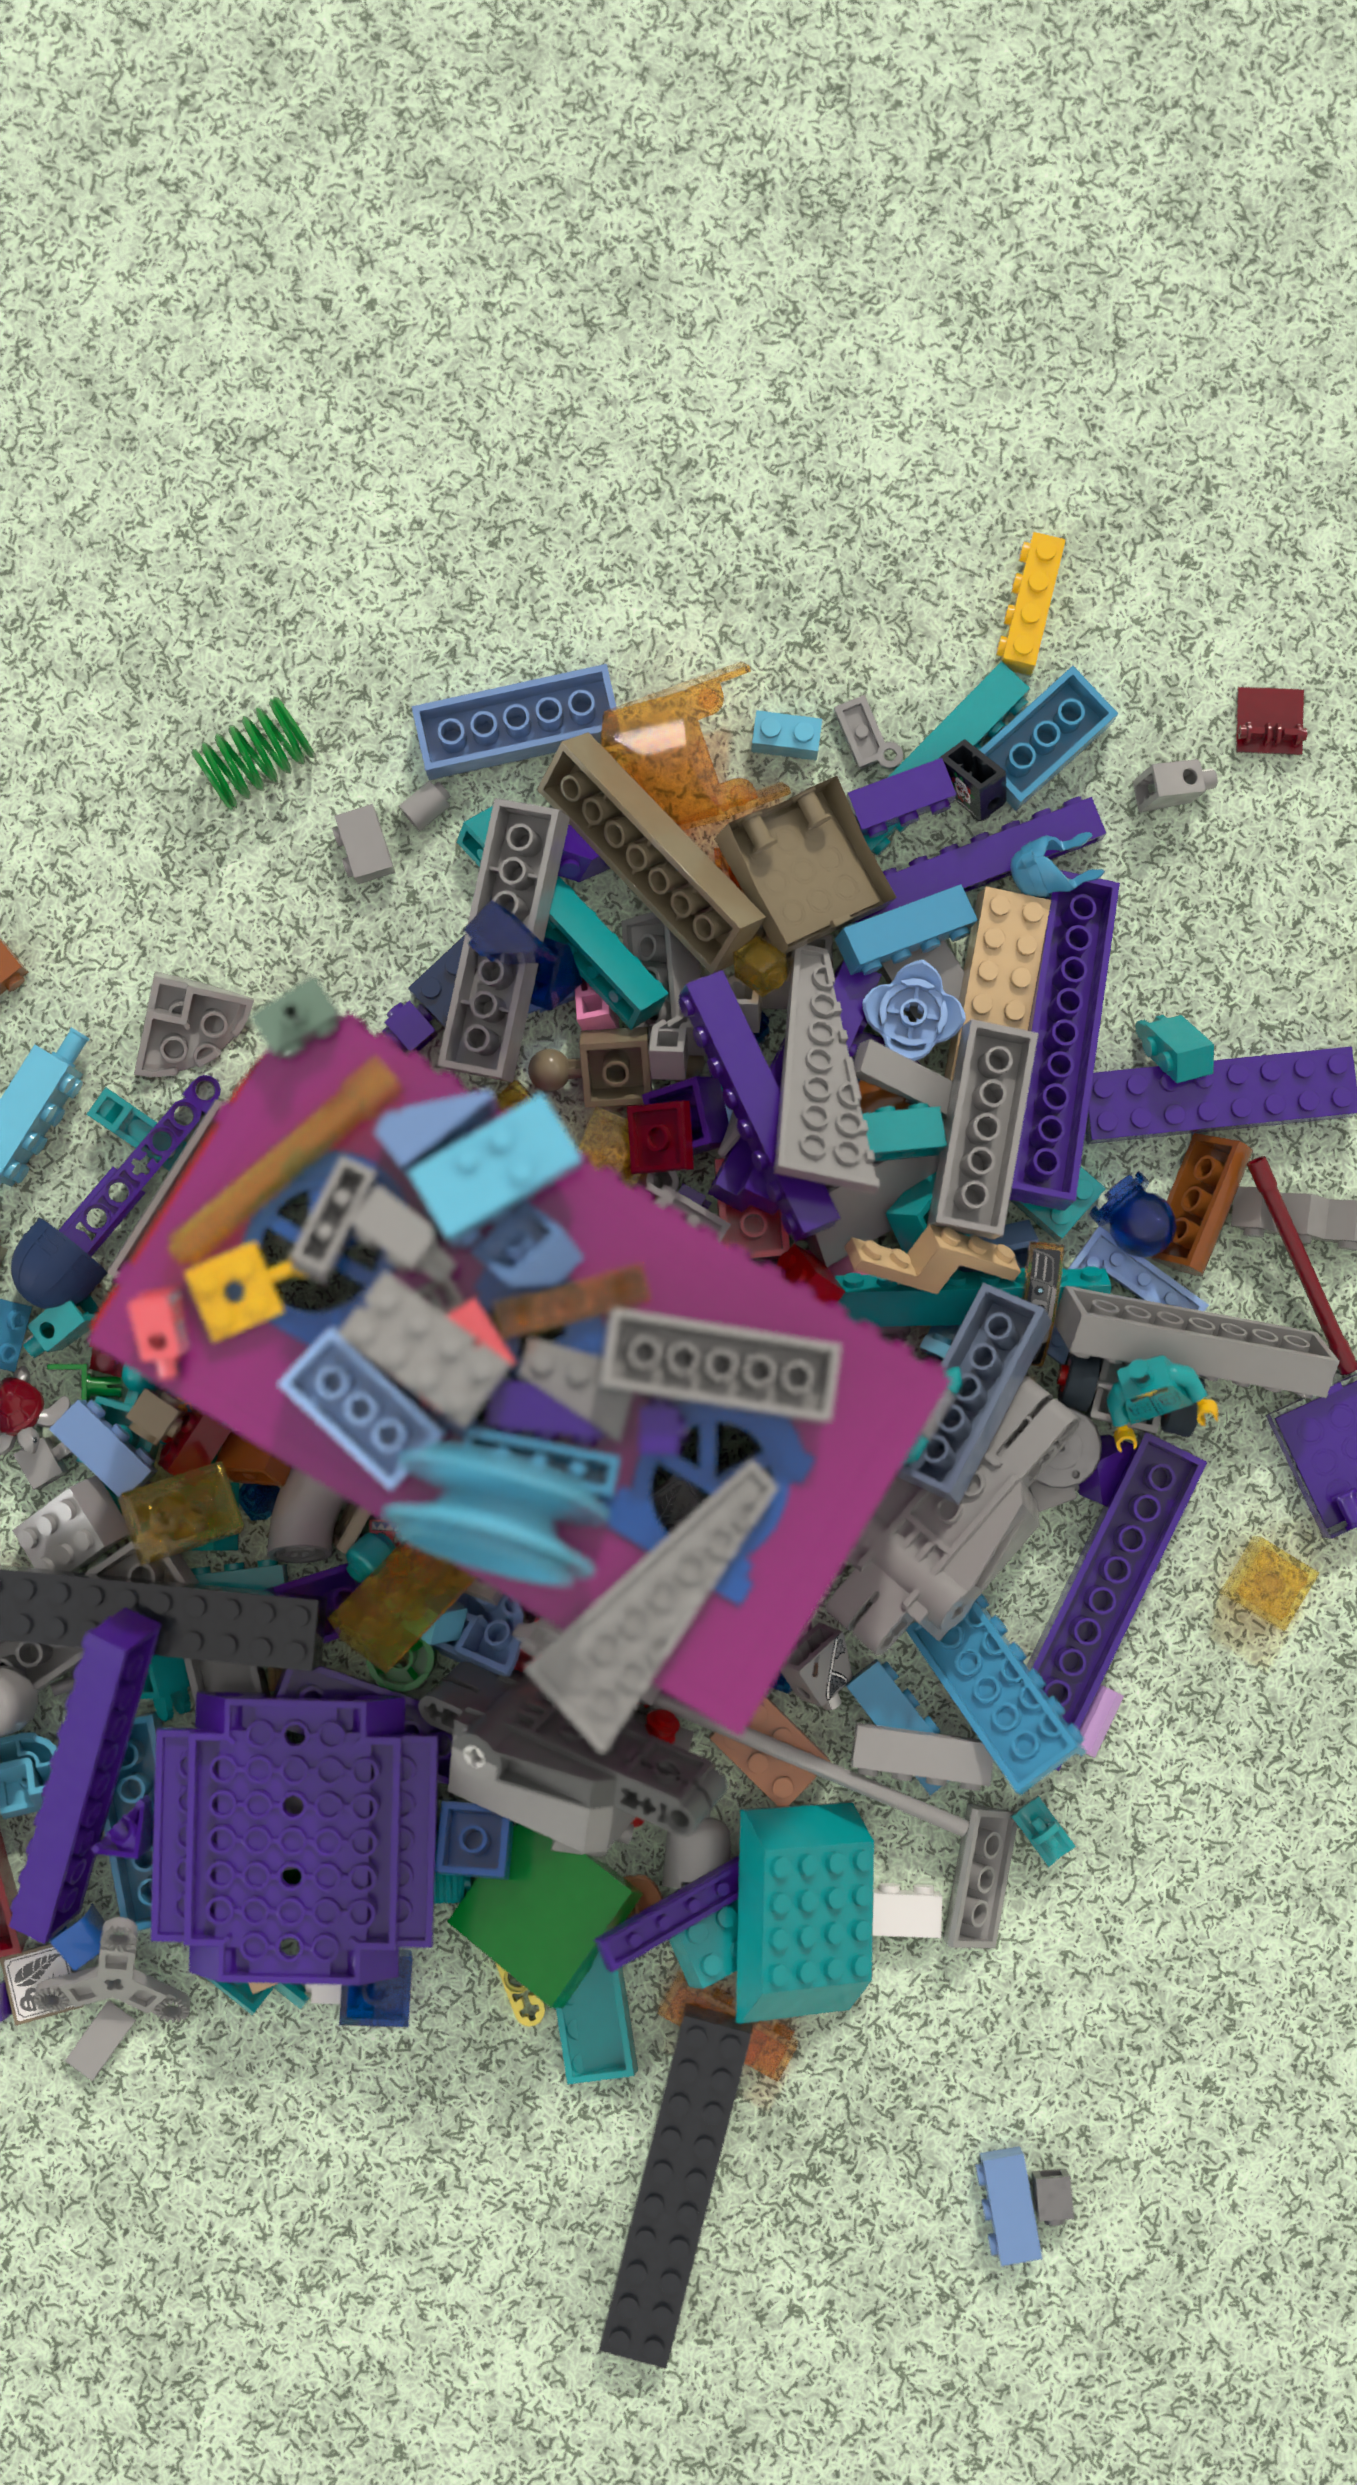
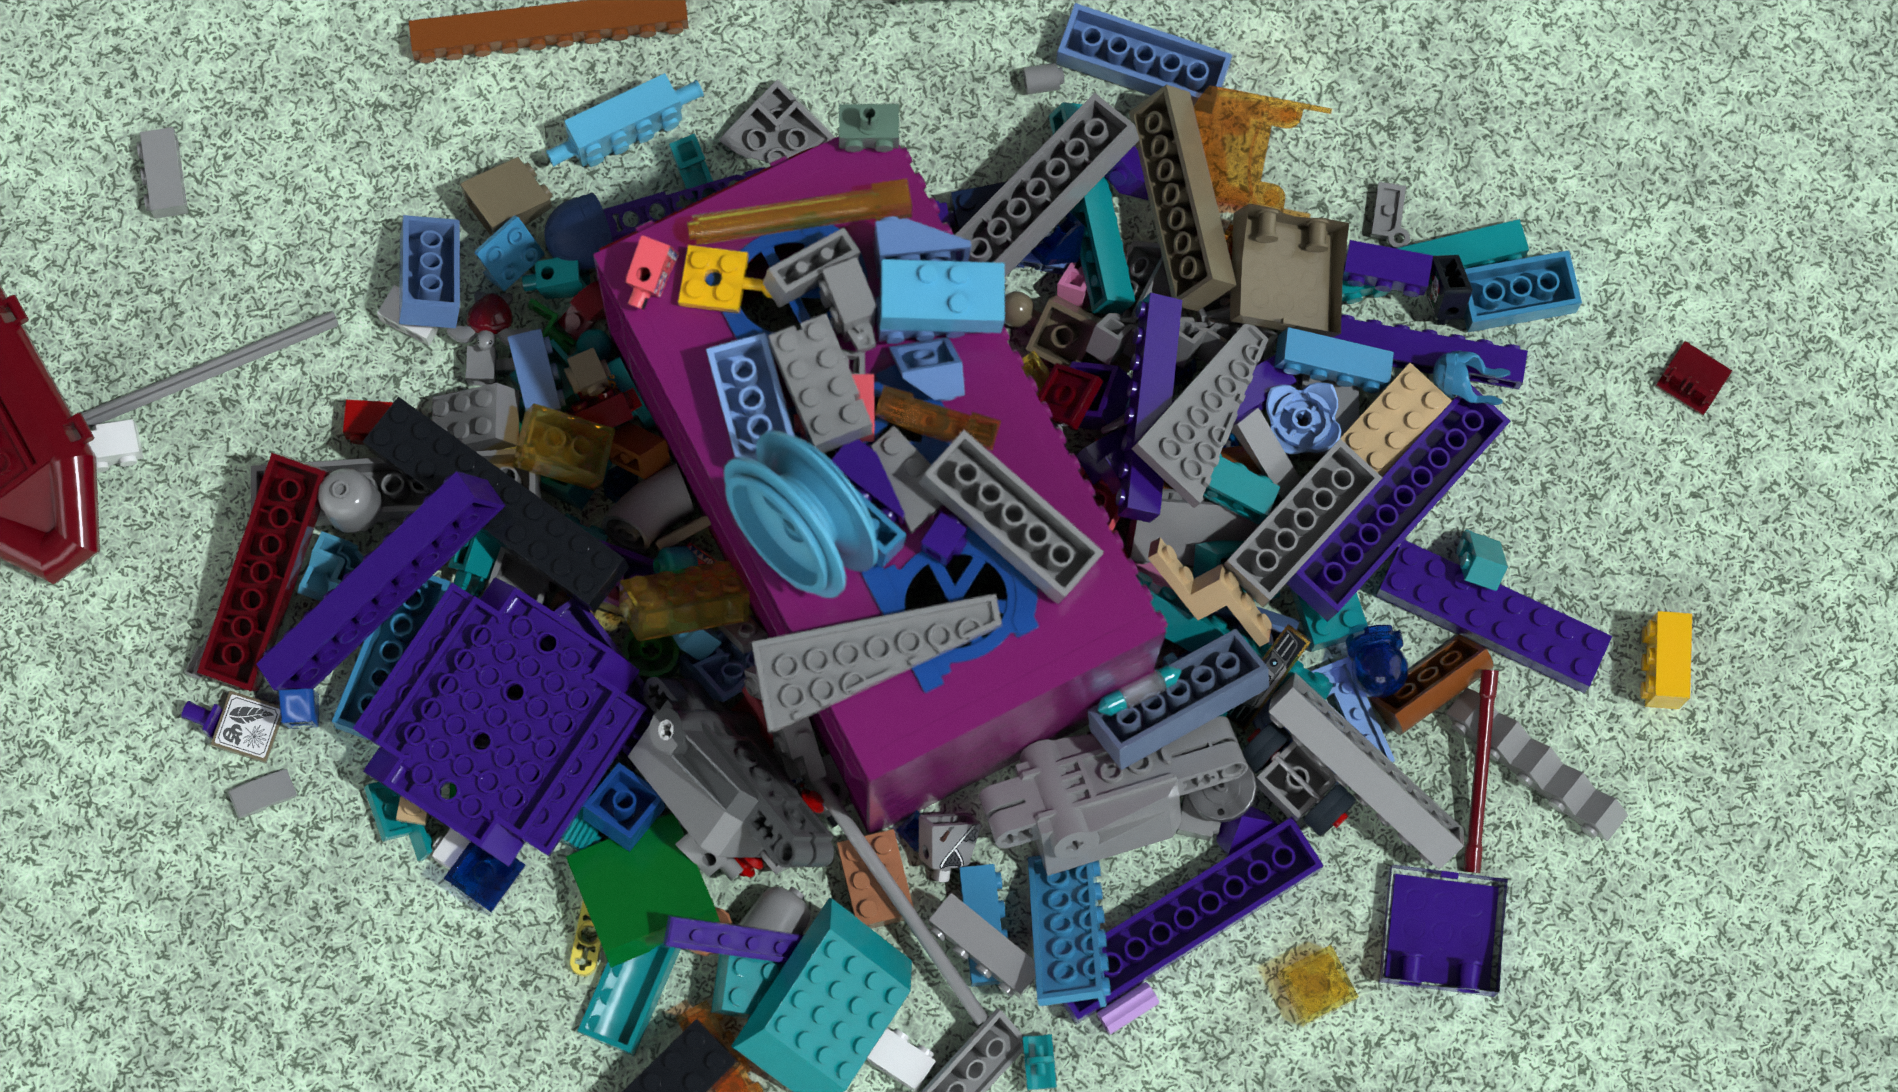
camera: 25 degrees right, 10 degrees down
(114, 1979) = (315, 736): light grey piece -> none
(130, 1835) = (383, 650): dark purple slope -> none
(364, 844) = (981, 80): light grey brick -> none
(503, 936) = (1041, 187): clear blue slope -> none
(760, 966) = (1212, 320): clear yellow brick -> none
(786, 735) = (1332, 180): medium azure brick -> none
(1032, 602) = (1572, 188): yellow brick -> none
(1154, 1389) = (1314, 777): teal torso -> none
(1174, 783) = (1586, 374): light grey torso -> none

